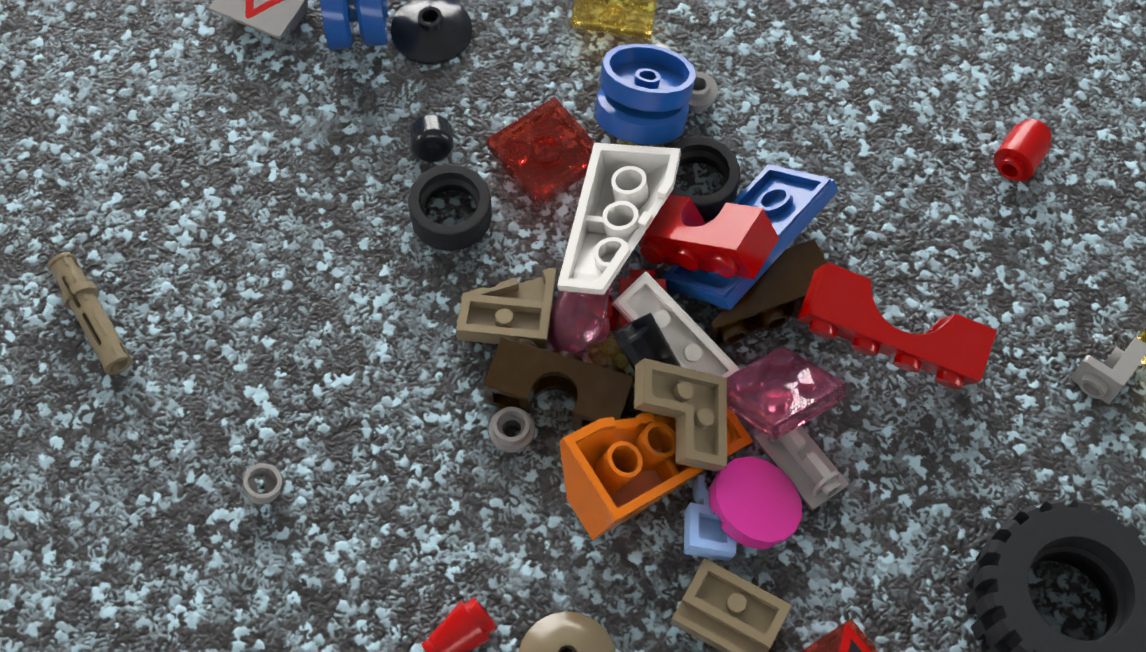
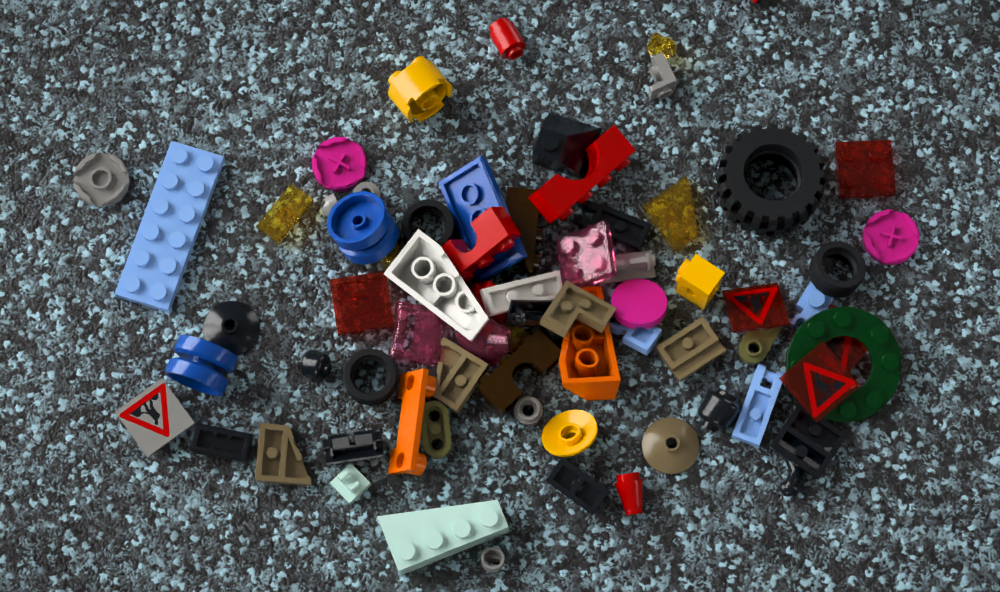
camera: 60 degrees left, 10 degrees up
(262, 388) = (436, 533): none -> light aqua wedge
(269, 82) = (221, 443): none -> black plate
(283, 153) = (279, 457): none -> dark tan wing
(290, 254) = (350, 483): none -> light aqua tile
(347, 243) = (367, 447): none -> black hinge
(353, 303) = (413, 390): none -> orange brick
(415, 320) = (436, 430): none -> olive plate
(431, 549) = (578, 485): none -> black hinge
(503, 498) = (569, 433): none -> yellow dish
(539, 250) = (426, 336): none -> clear pink plate
(720, 43) = (339, 164): none -> dark pink tile
(840, 567) = (698, 281): none -> yellow brick
(856, 419) = (624, 228): none -> black hinge
(877, 73) = (419, 89): none -> yellow brick
(922, 284) = (564, 144): none -> black slope
(923, 491) = (674, 215): none -> clear yellow wing

